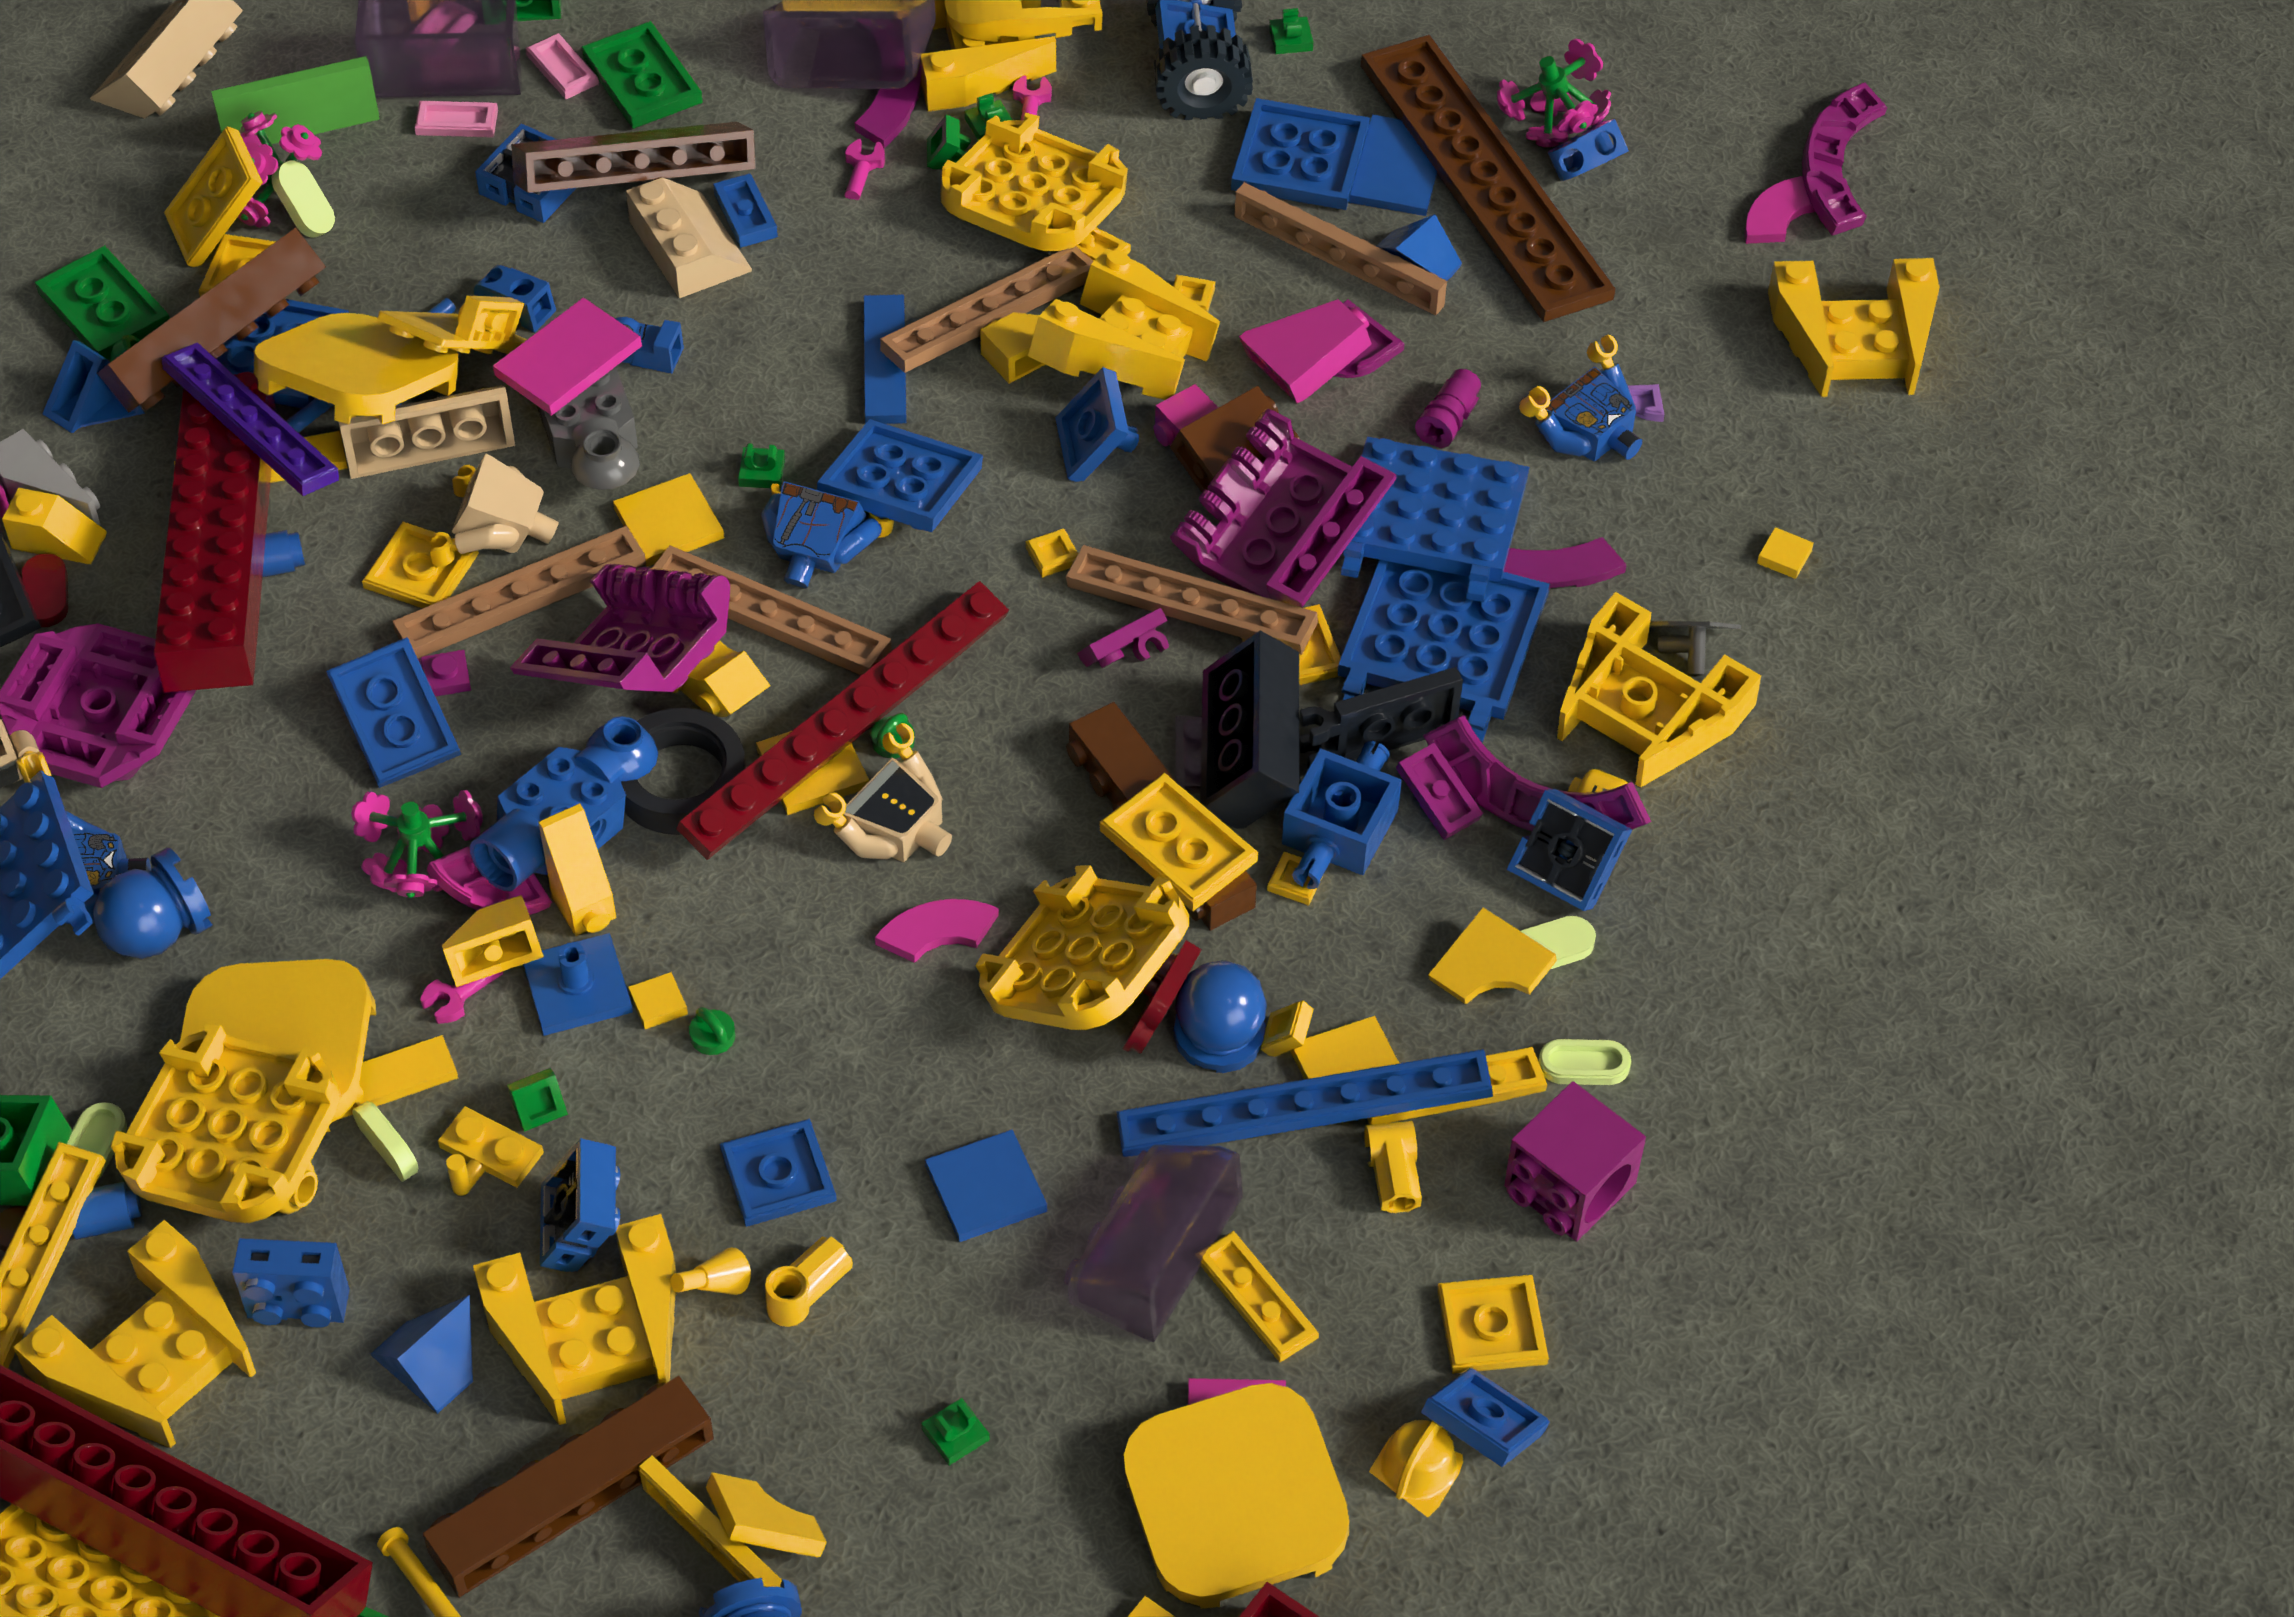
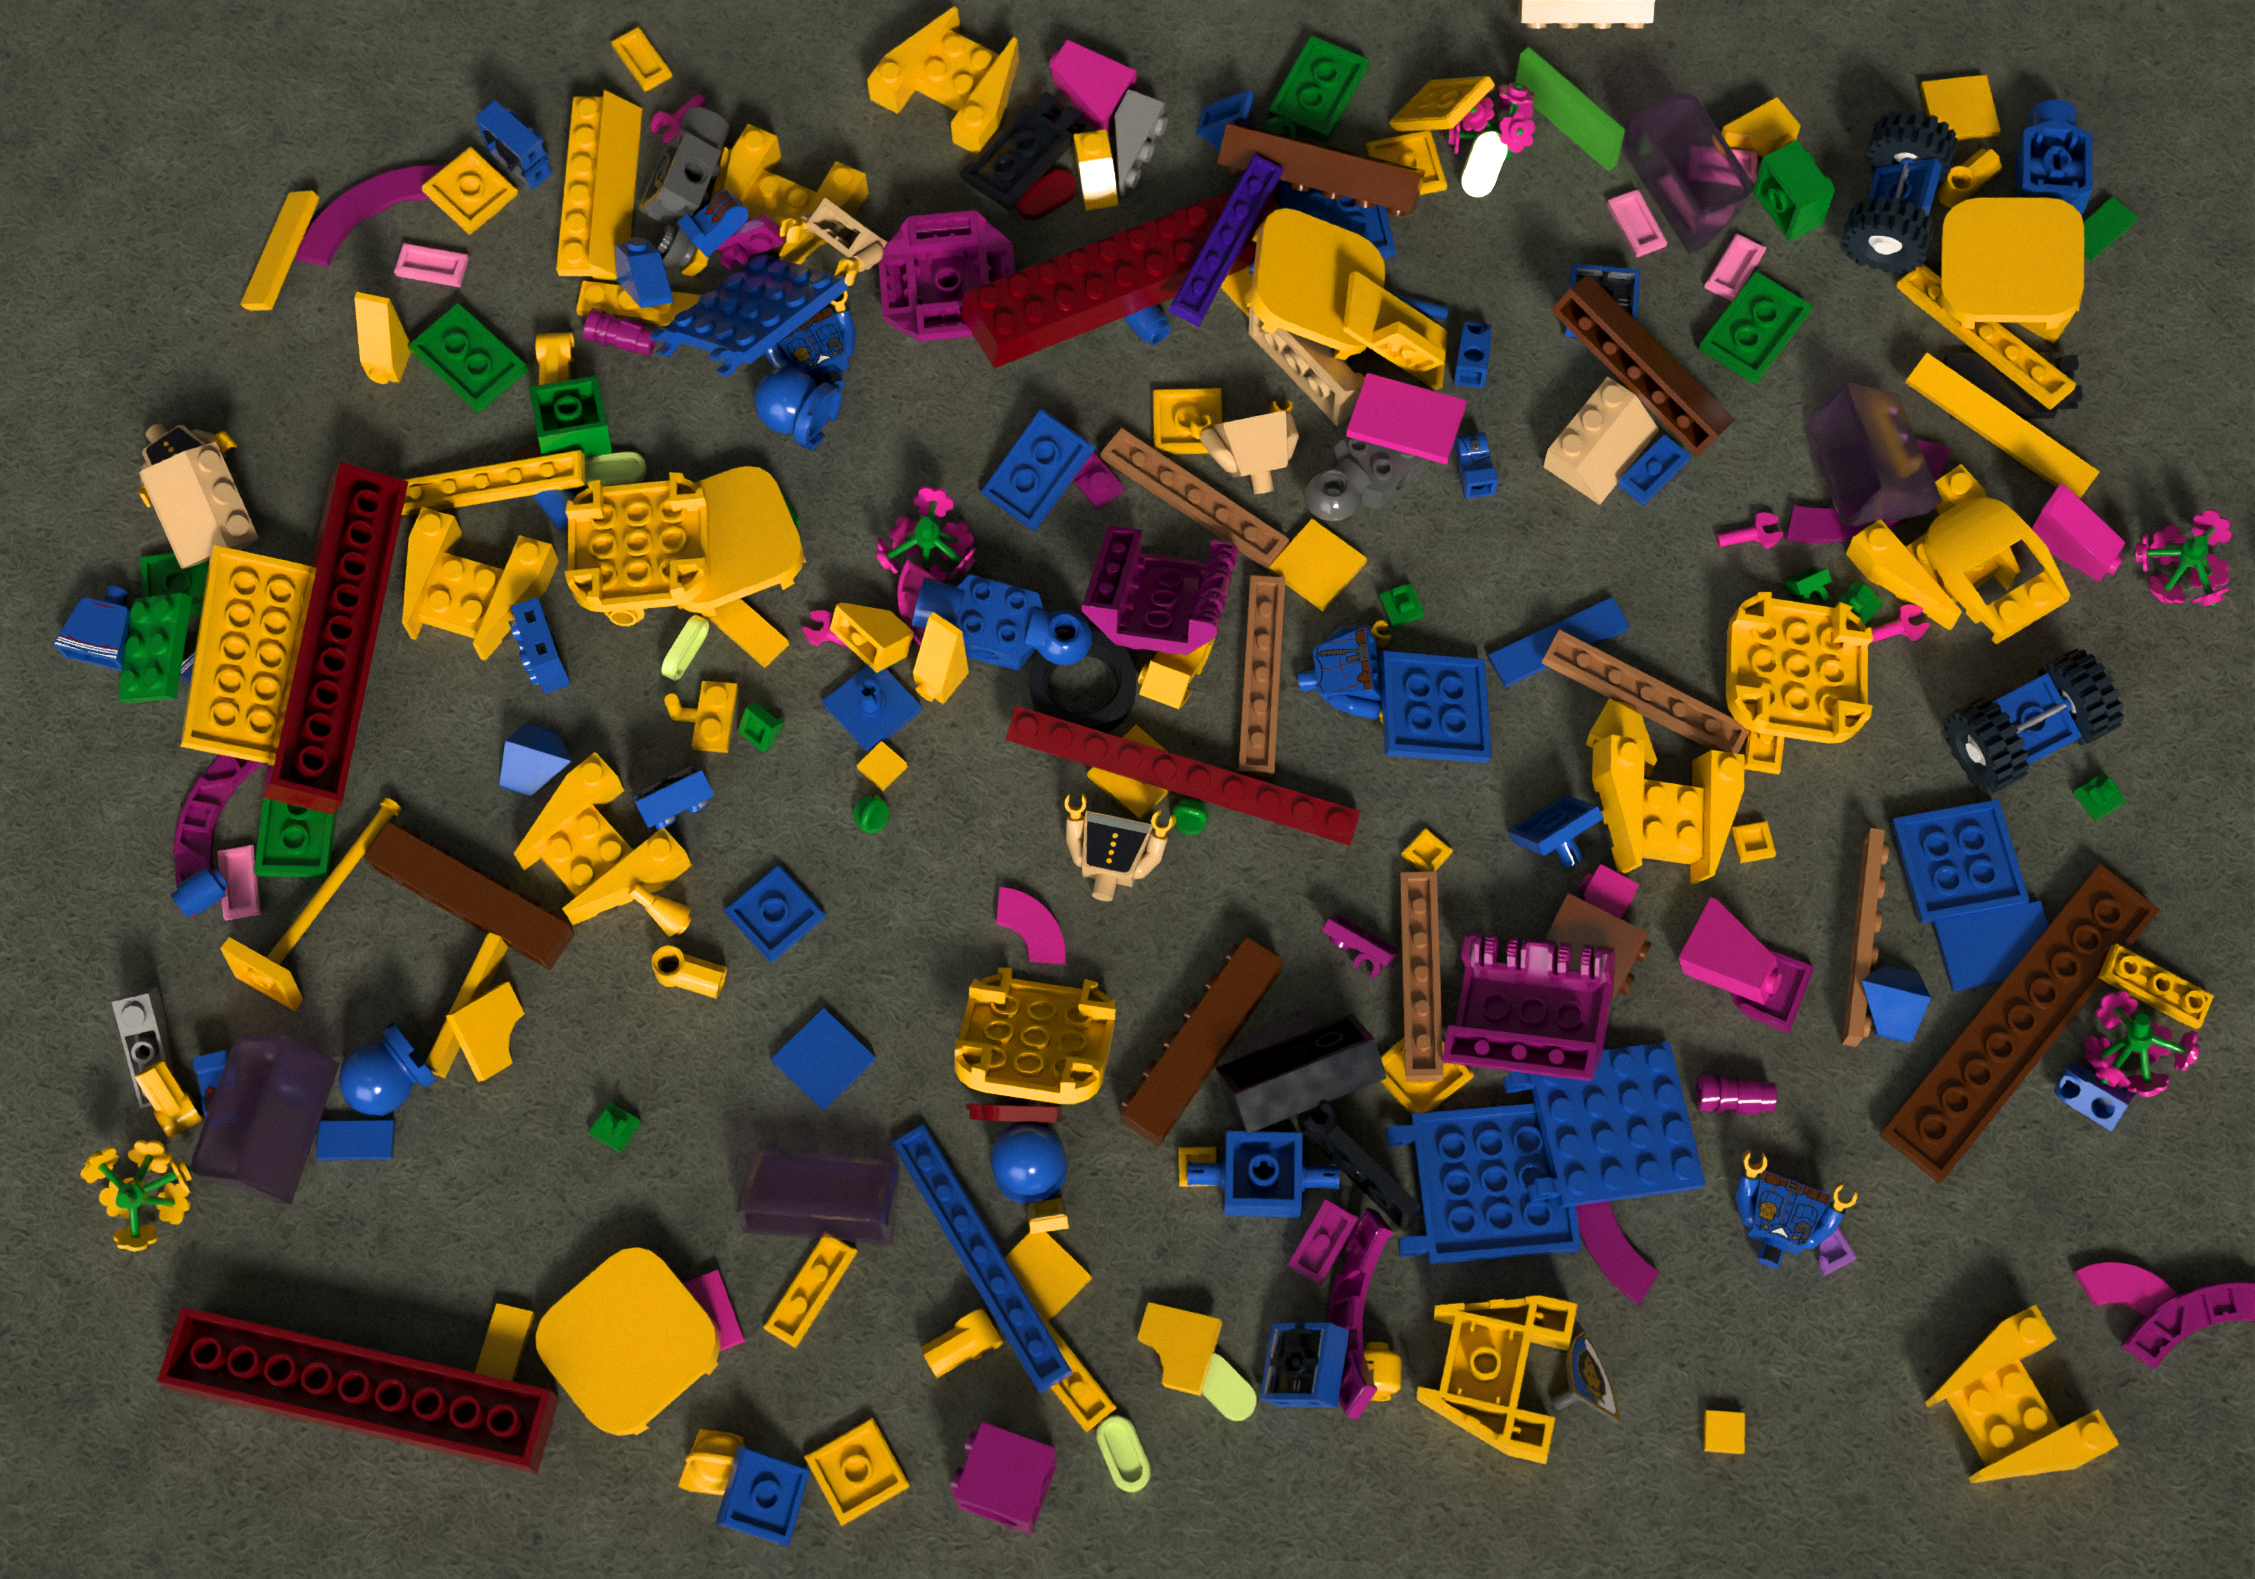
camera: 70 degrees right, 15 degrees up
(1178, 841) = (1167, 1064): yellow tile -> none
(1513, 63) = (2139, 978): none -> yellow tile

